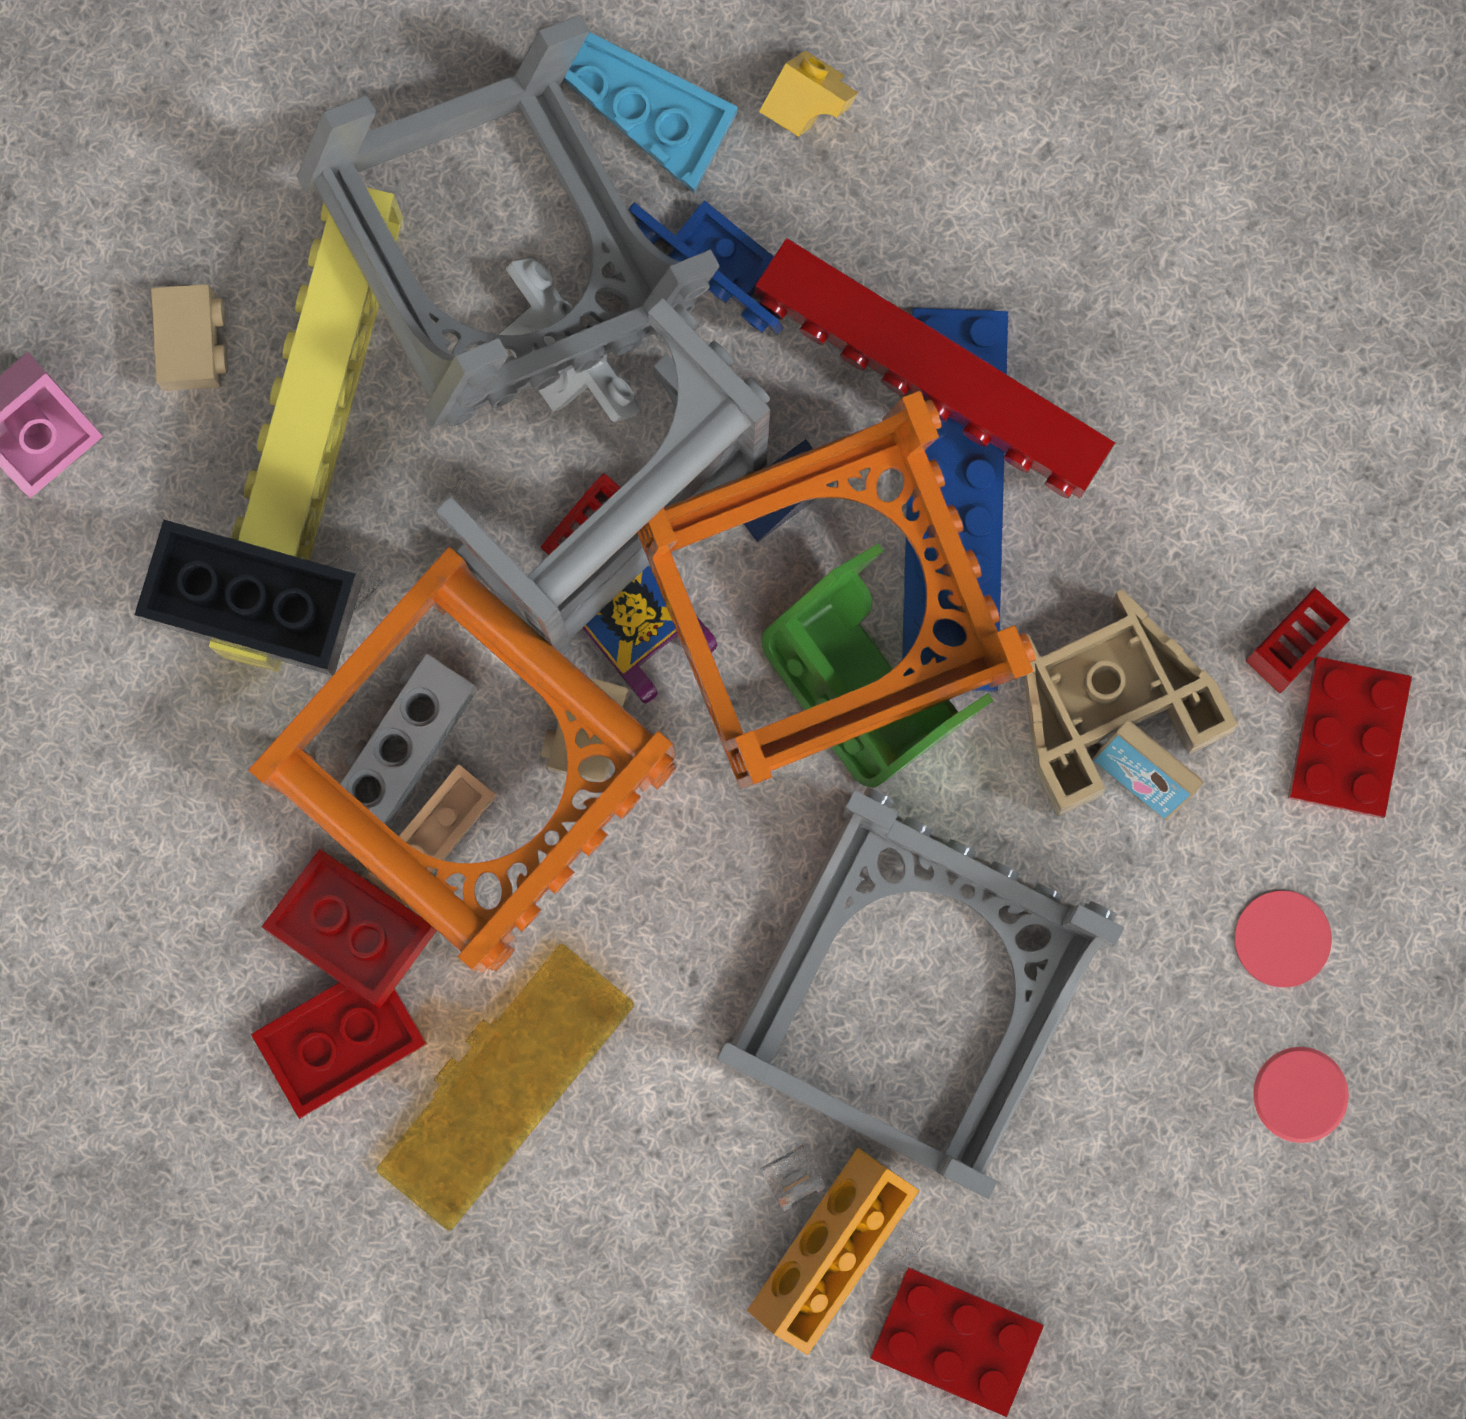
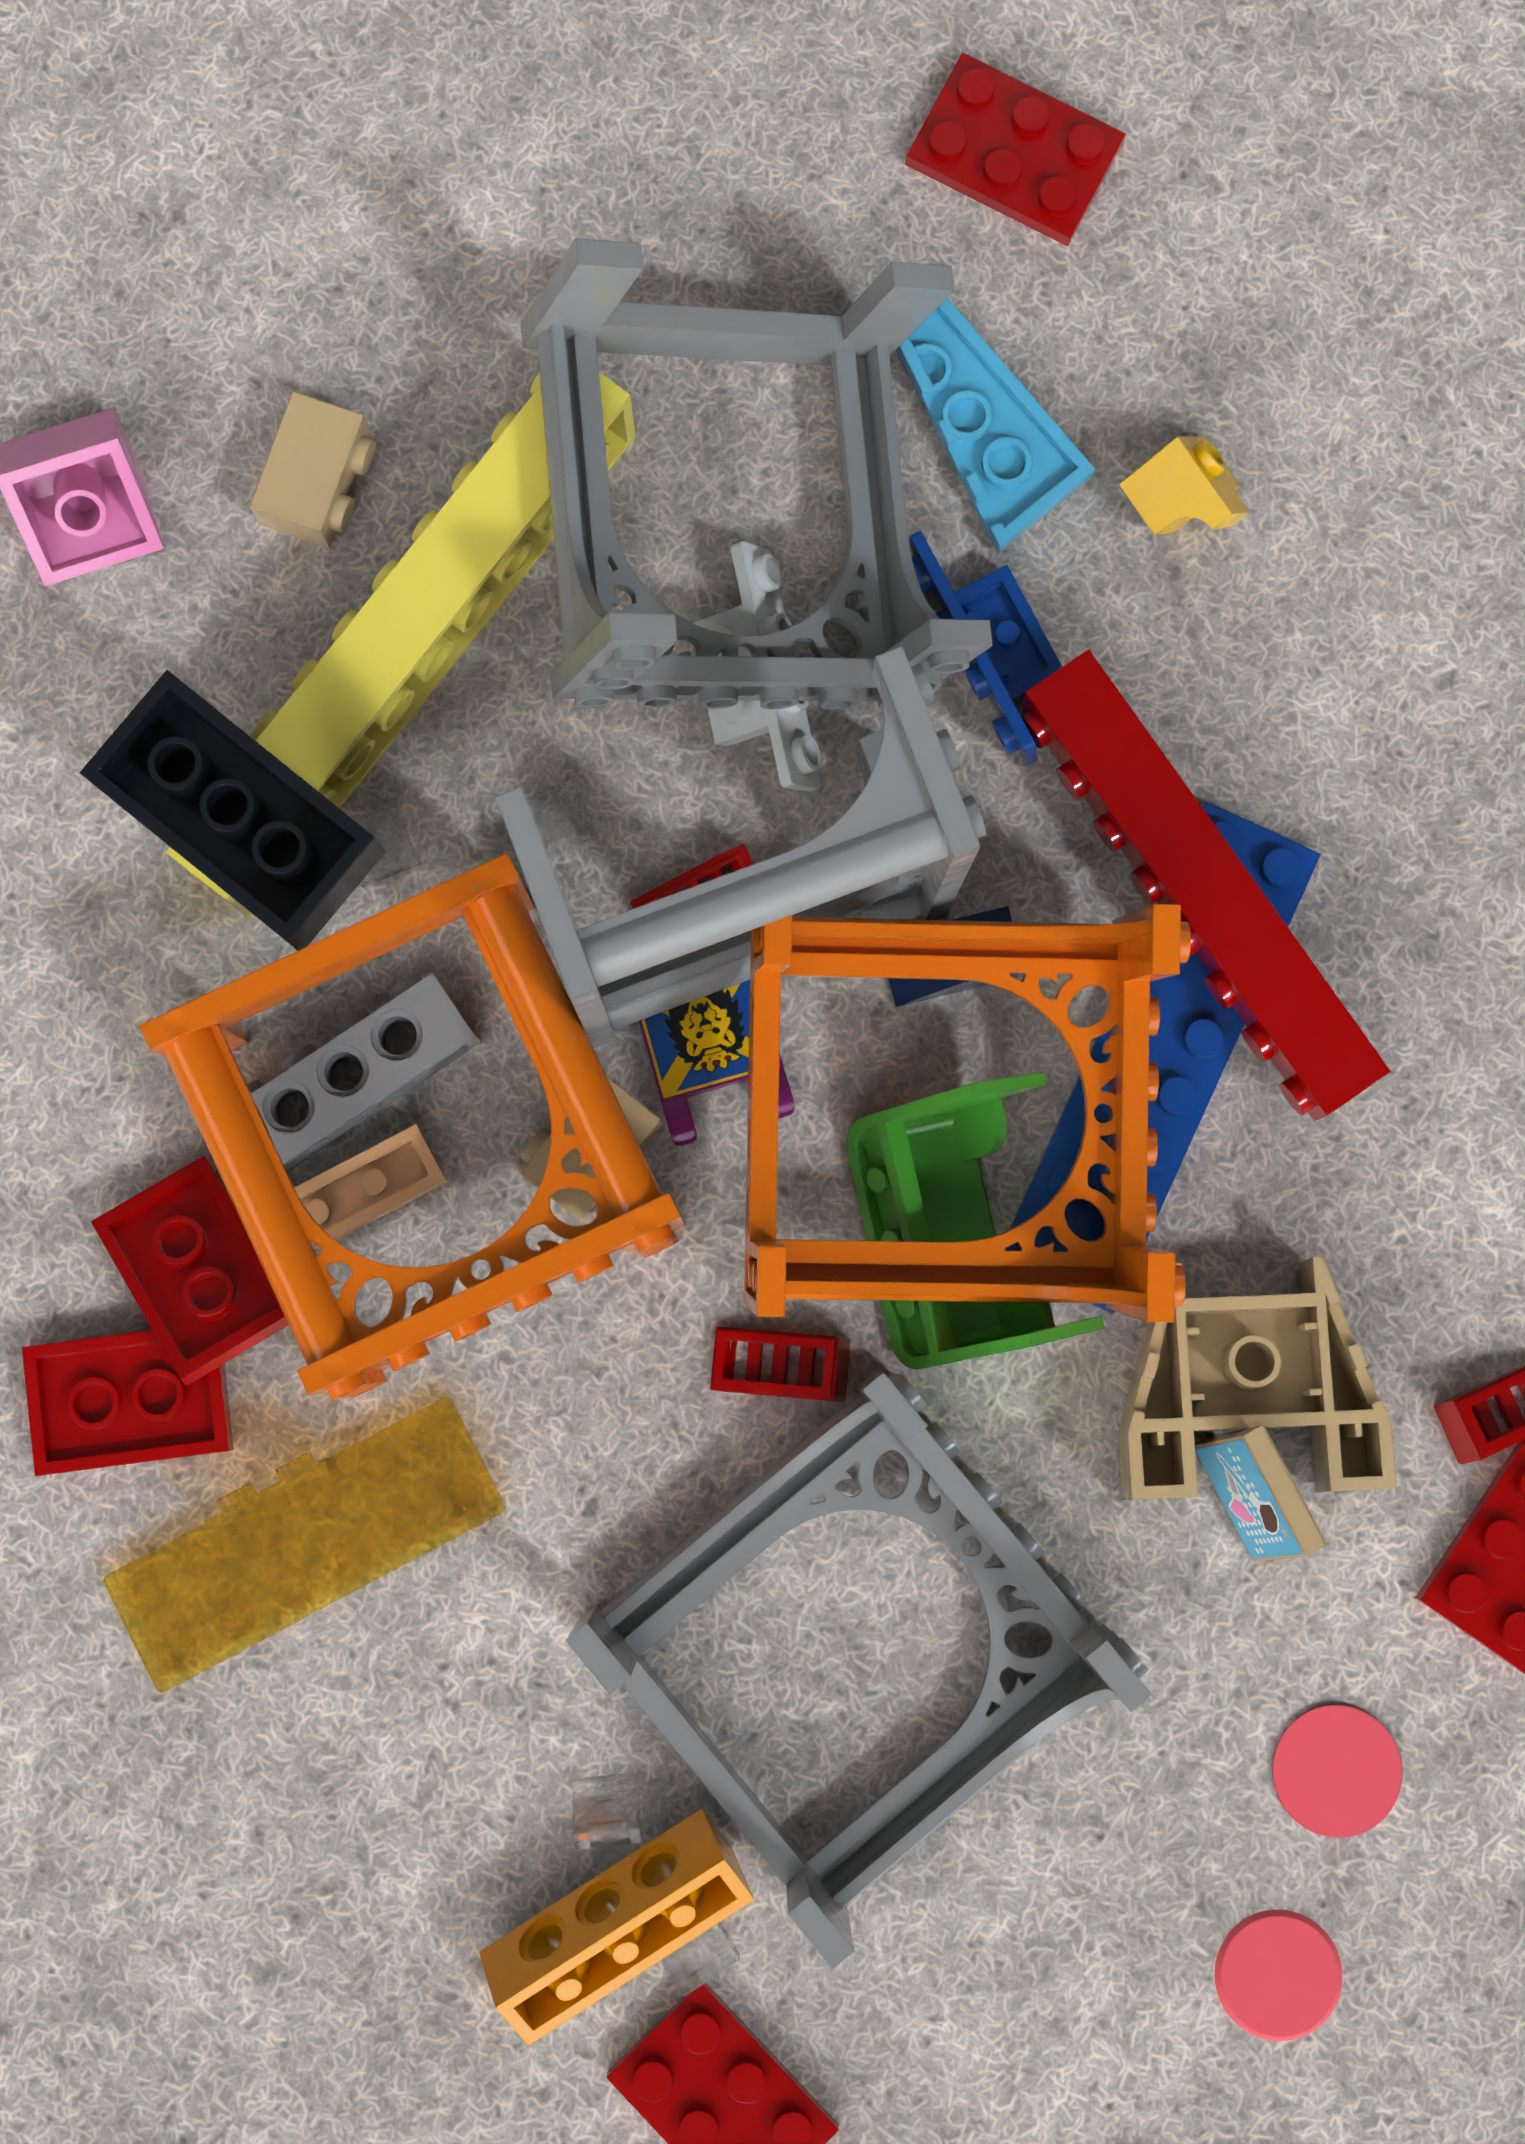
camera: 20 degrees right, 0 degrees up
(822, 811) = (834, 1369): none -> red slope

